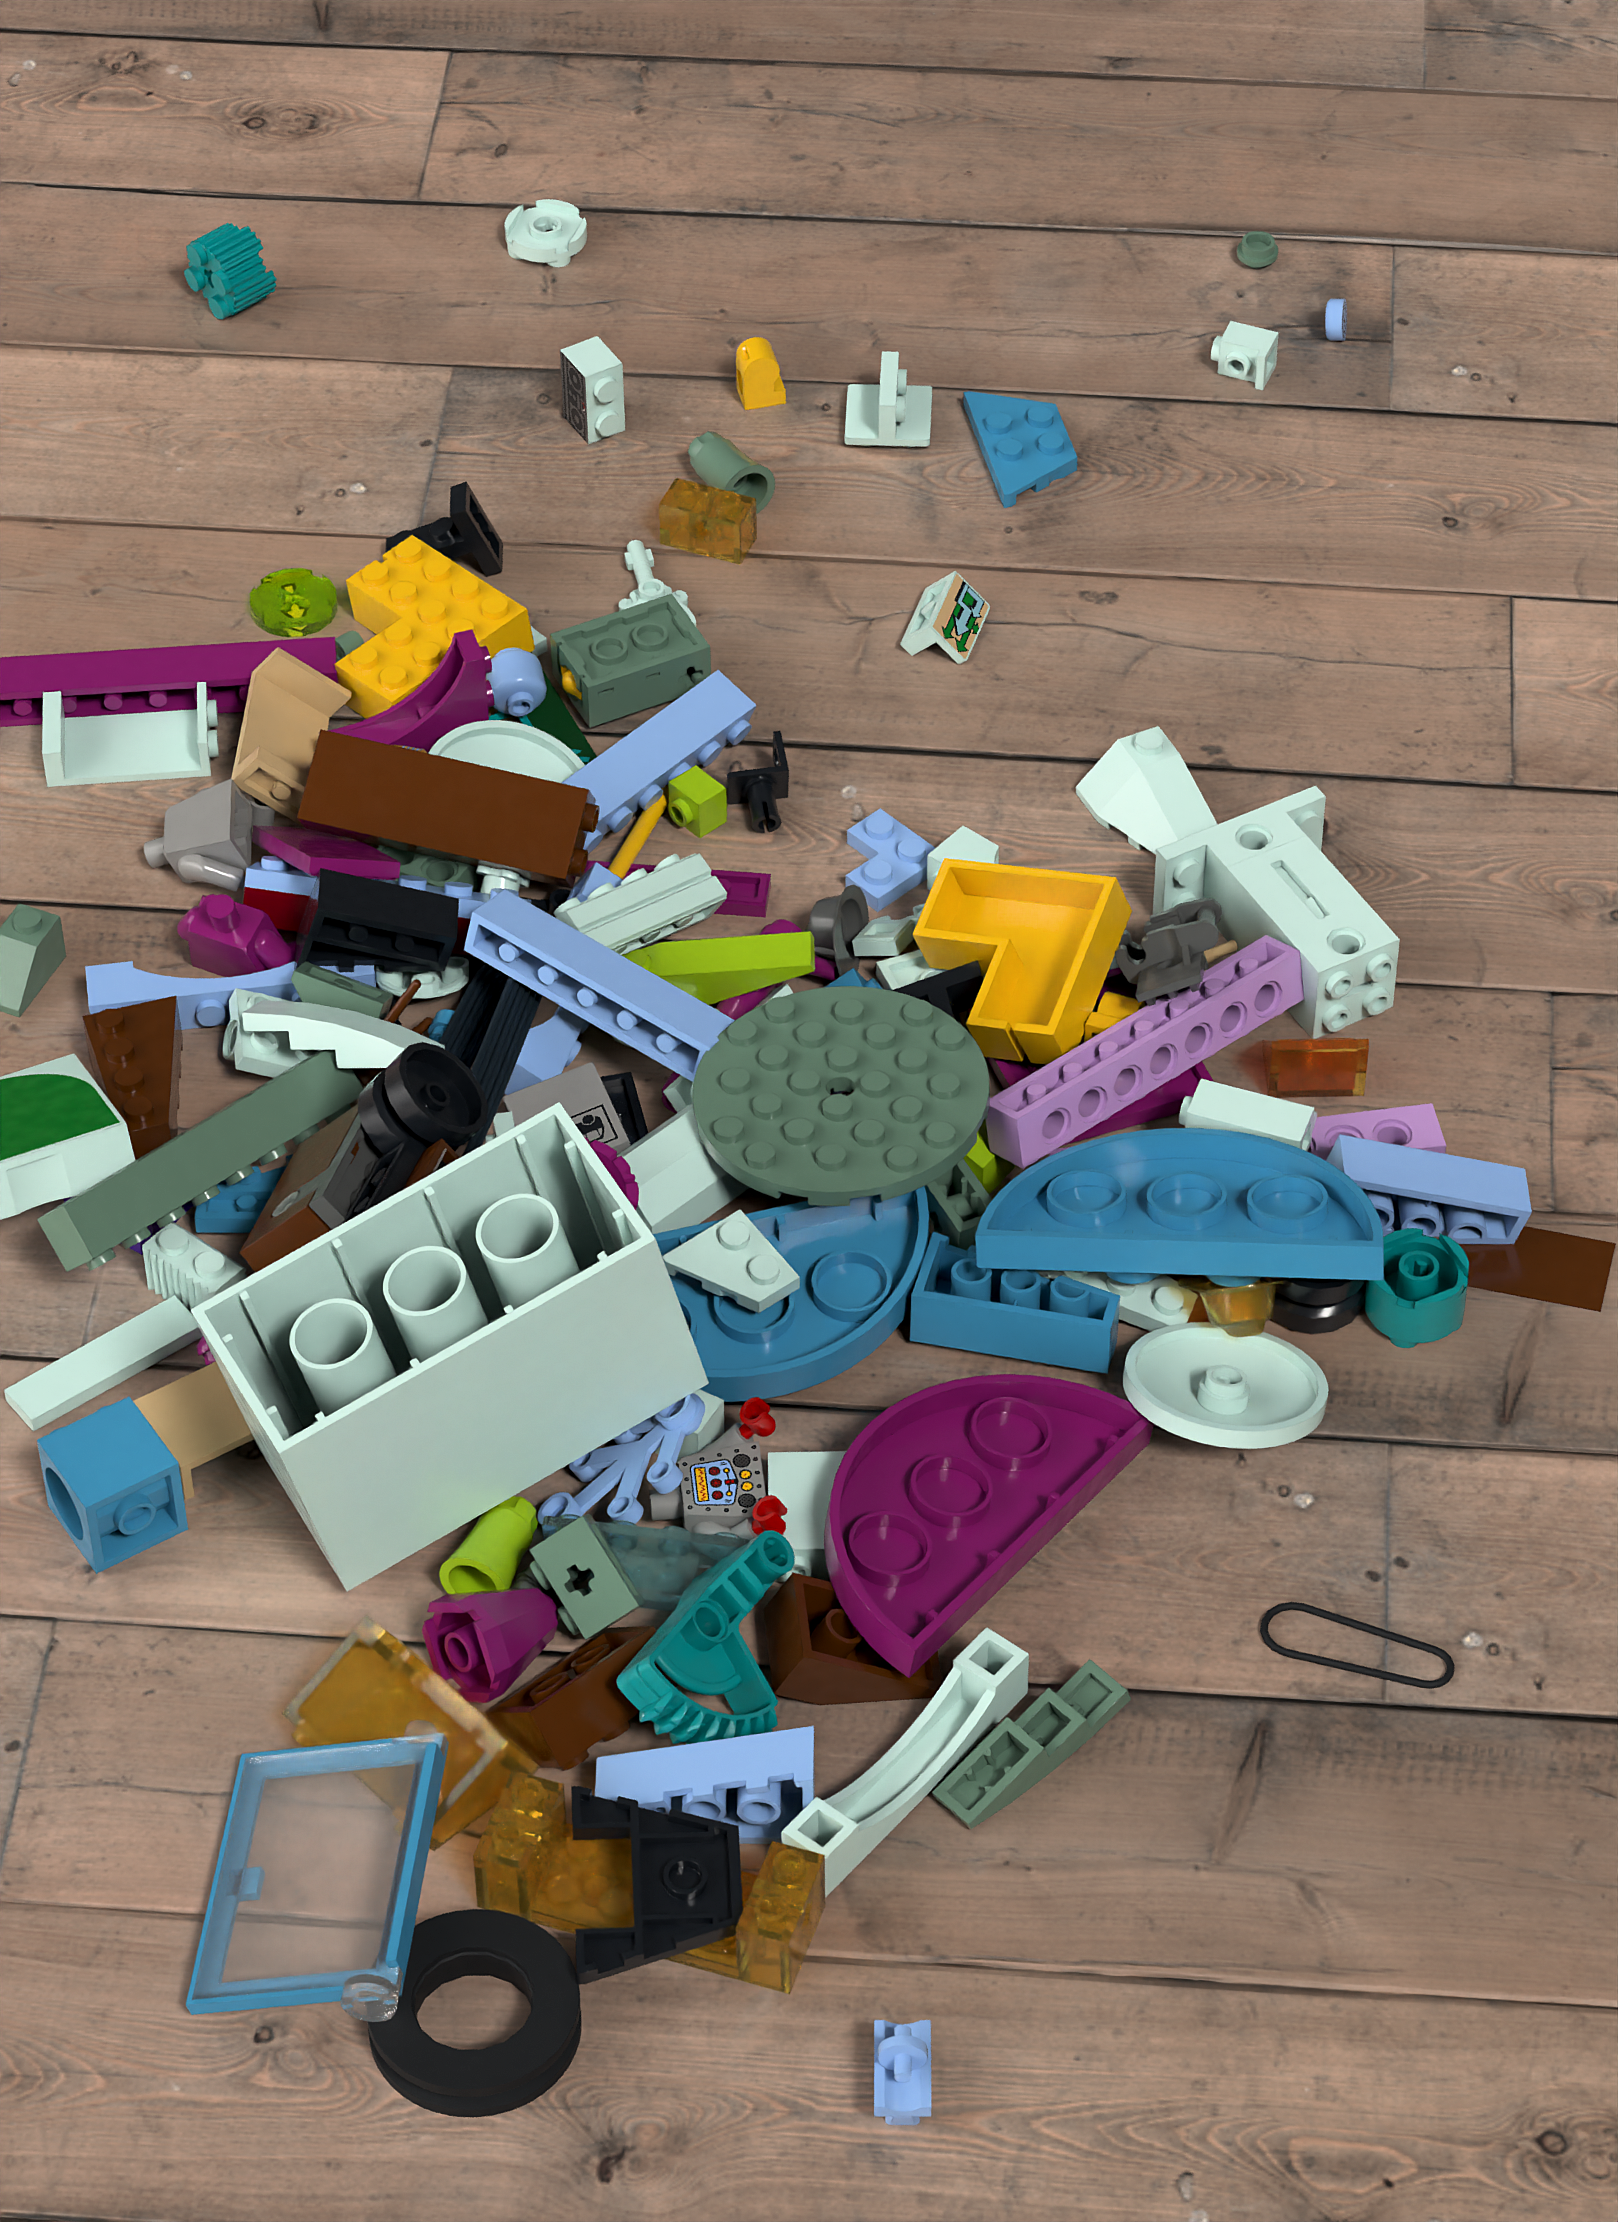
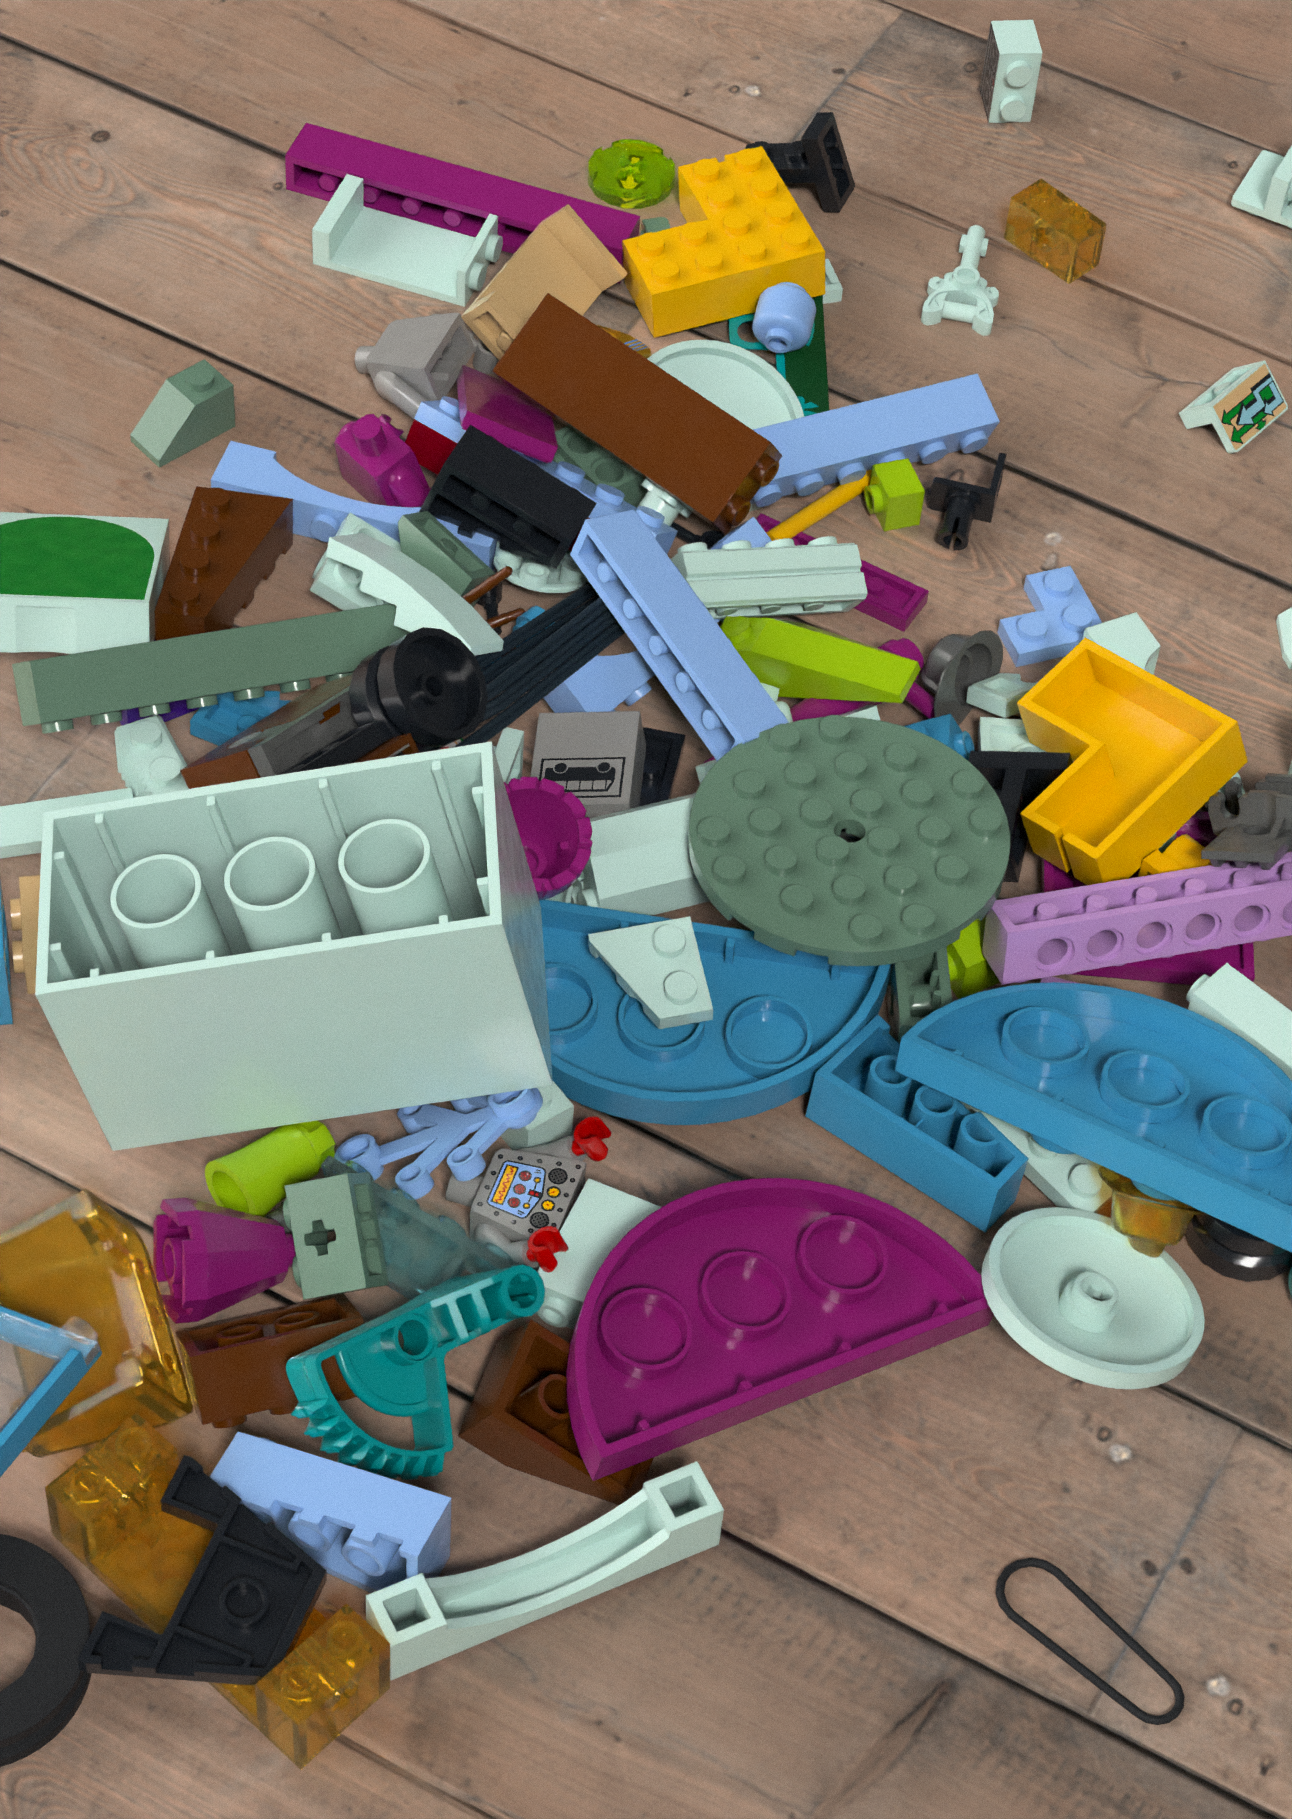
camera: 20 degrees right, 5 degrees up
(446, 700) = (698, 311): magenta arch -> none
(629, 660) = (903, 334): sand green piece -> none
(729, 469) = (1103, 192): sand green plant -> none
(758, 375) = (1179, 111): yellow leg -> none
(1031, 1747) = (688, 1607): sand green slope -> none

